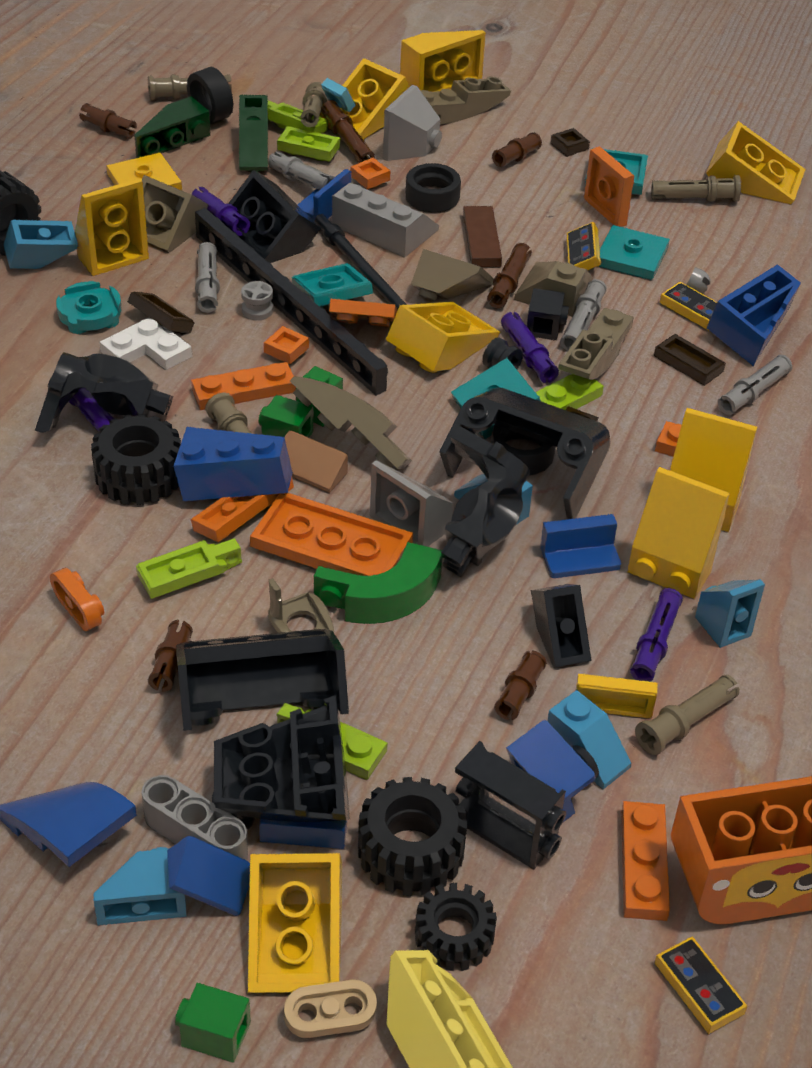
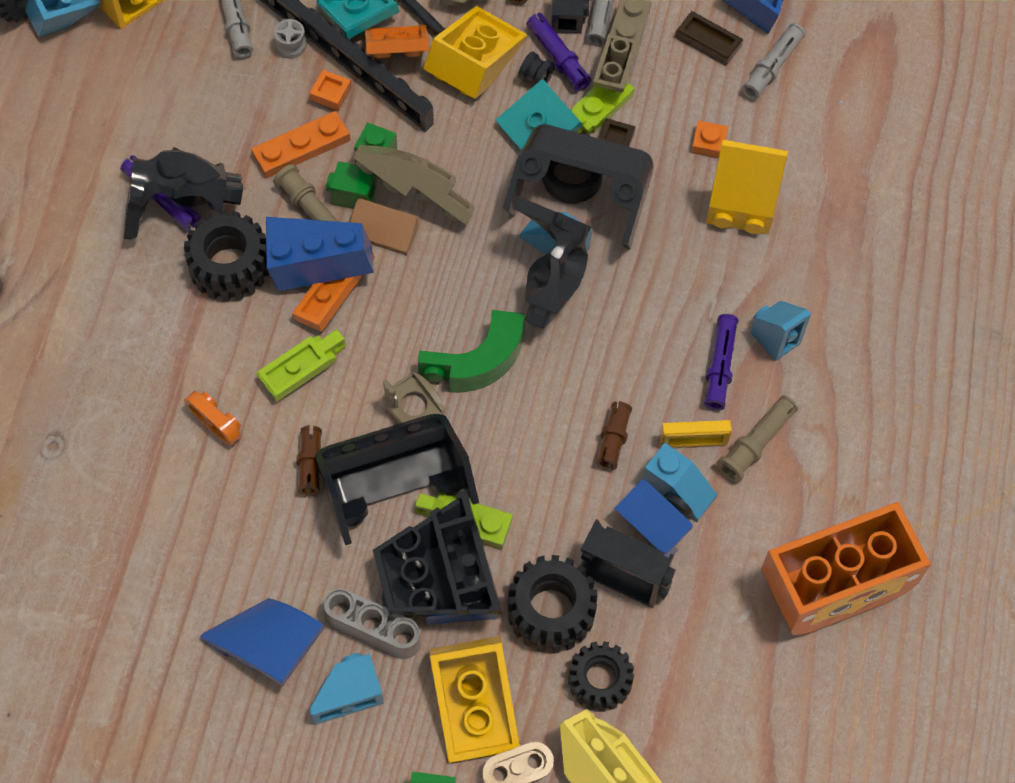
camera: 10 degrees left, 20 degrees up
(79, 317) = (131, 89): teal plate -> none
(147, 339) = (196, 102): white plate -> none
(161, 312) = (201, 69): dark brown tile -> none
(209, 874) = (397, 674): blue slope -> none
(328, 537) = (421, 311): orange plate -> none
(408, 504) = (485, 266): light grey slope -> none
(562, 624) = (638, 366): black slope -> none
(580, 546) = (642, 279): blue panel -> none
(645, 861) = (741, 585): orange plate -> none
(678, 533) = (728, 263): yellow slope -> none
(700, 985) = (799, 689): tile -> none

